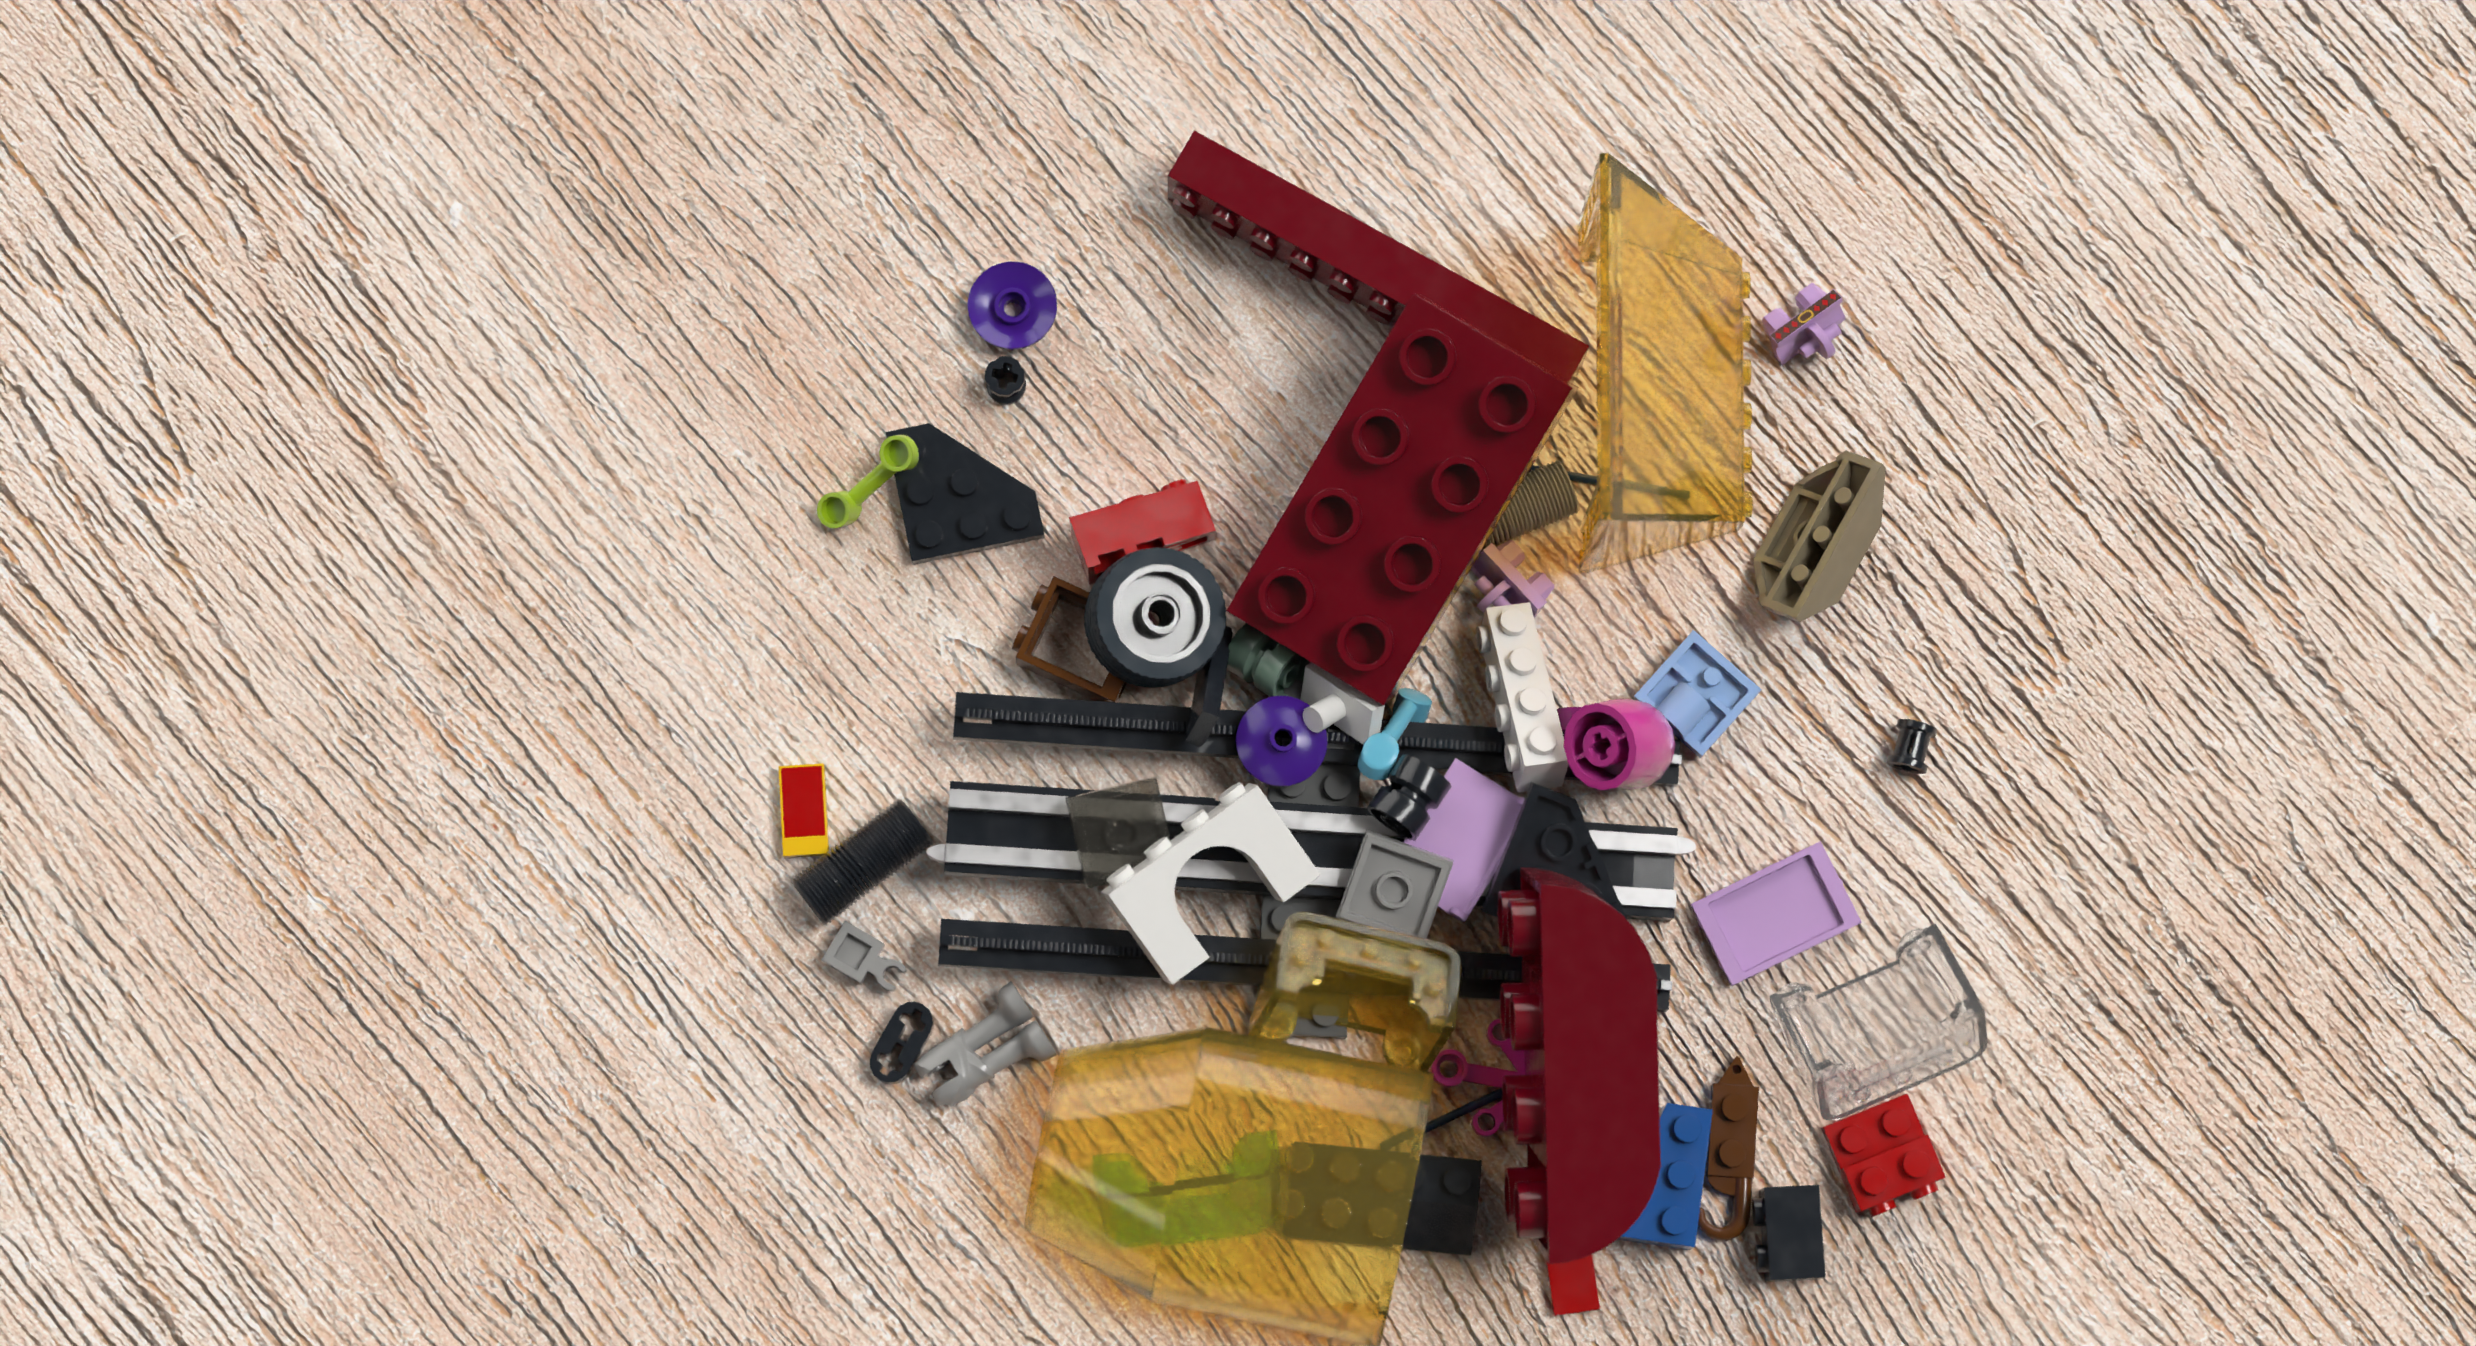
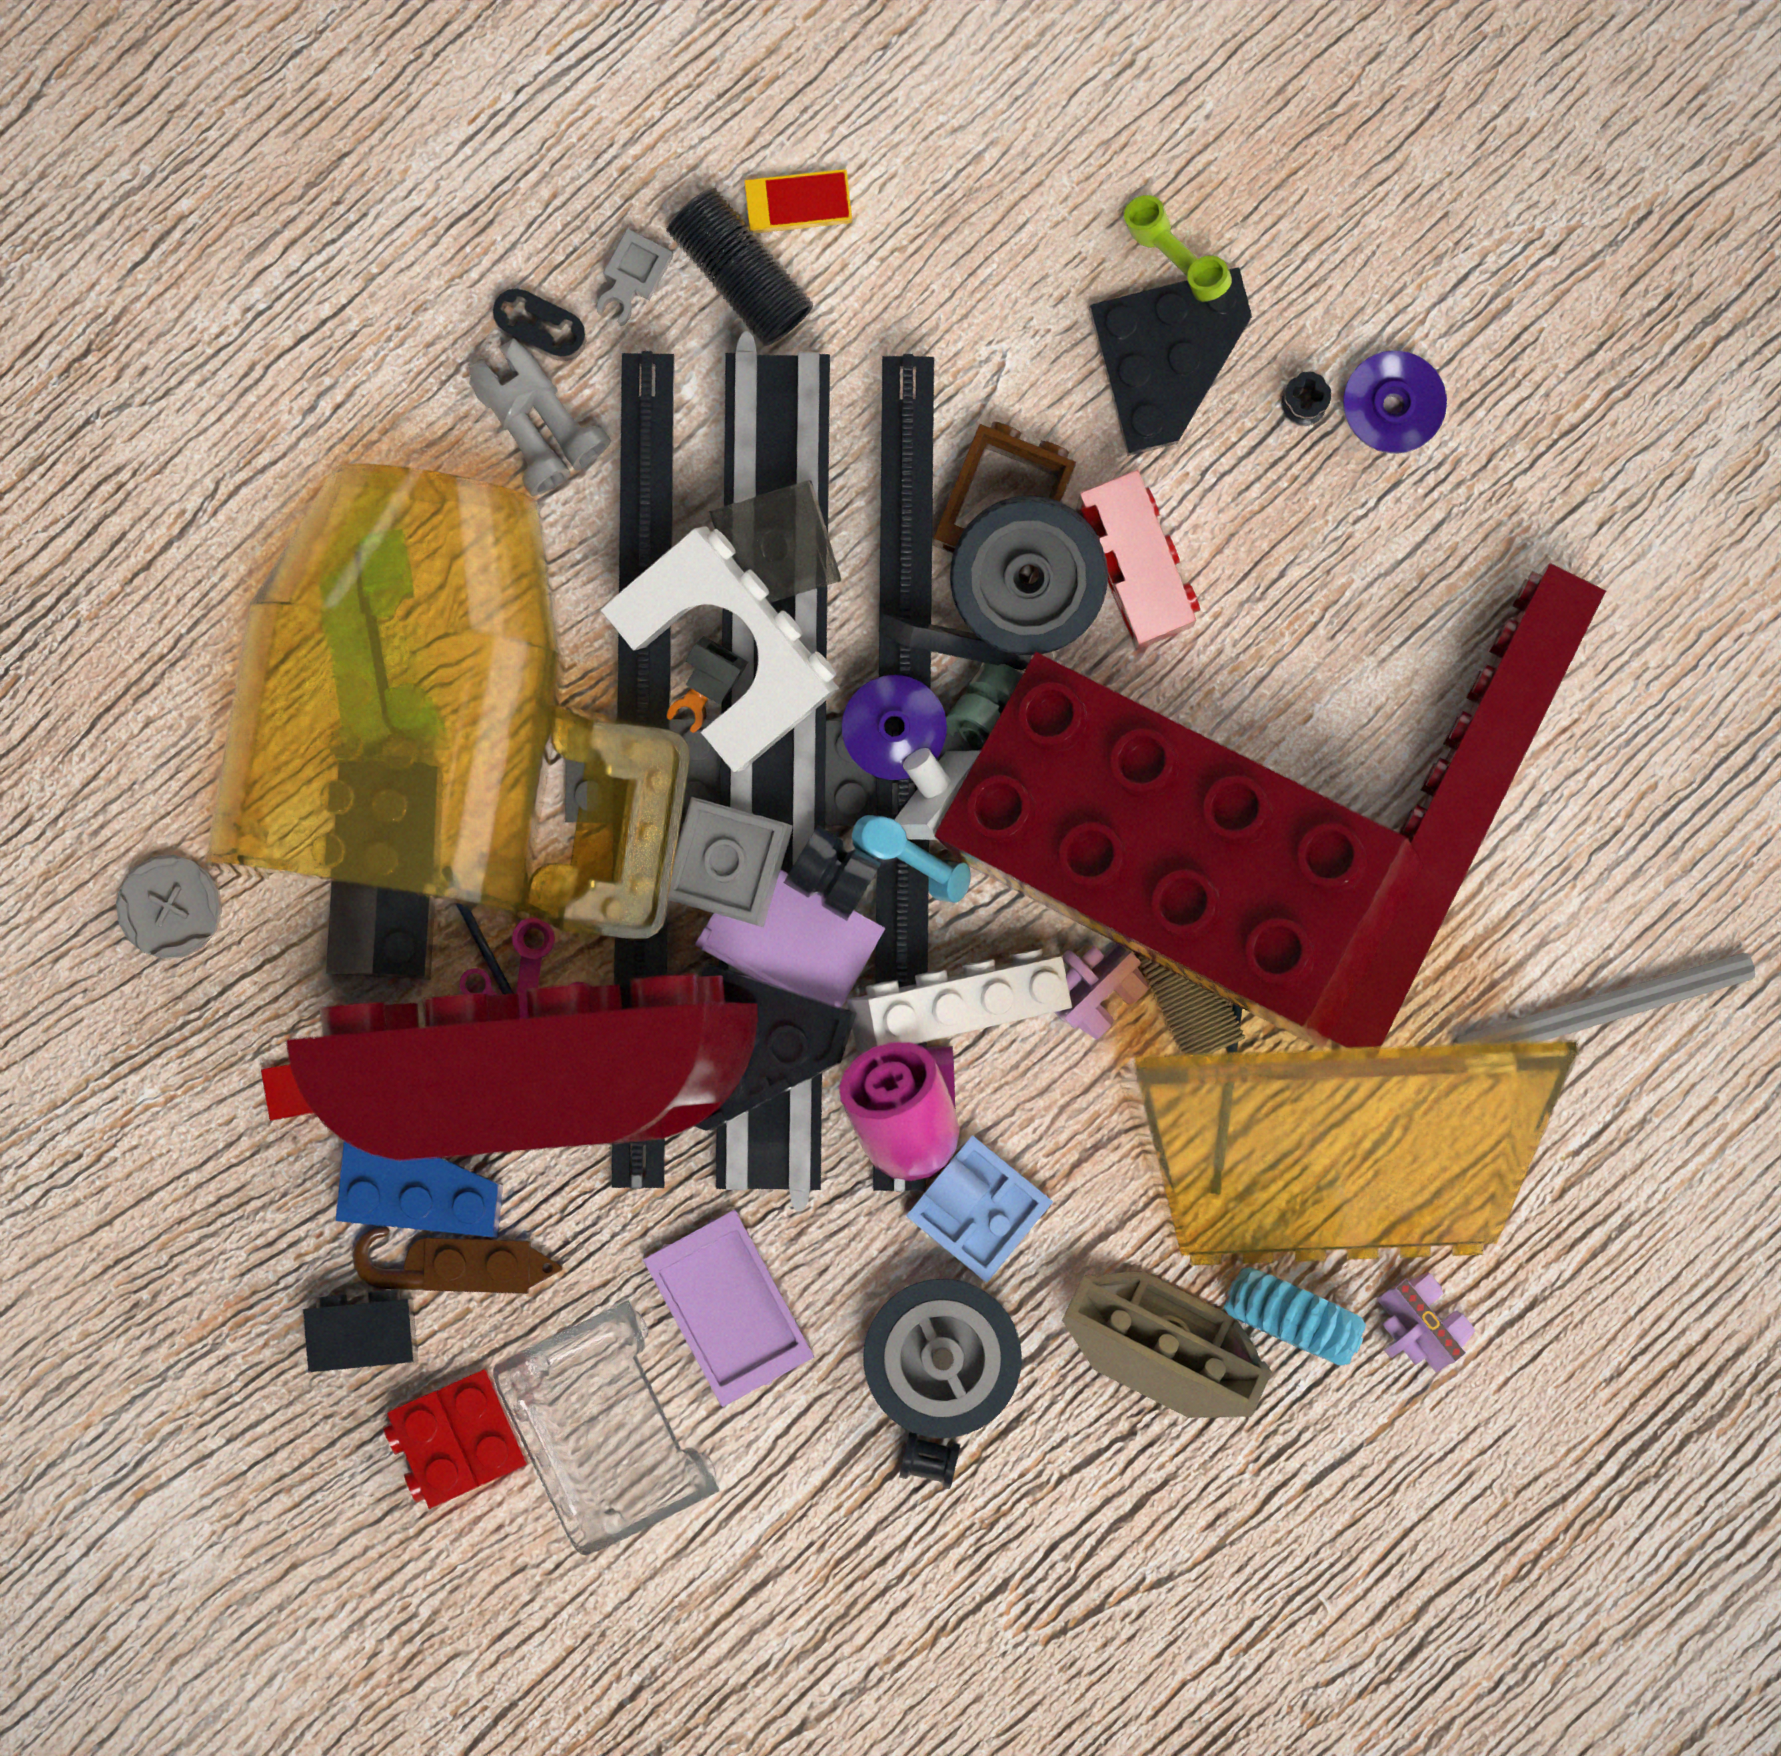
camera: 90 degrees right, 5 degrees up
(1233, 892) = (712, 678): none -> pearl dark grey piece
(1541, 162) = (1618, 1003): none -> light grey axle
(1799, 428) = (1295, 1316): none -> medium azure gear
(1825, 729) = (942, 1358): none -> wheel

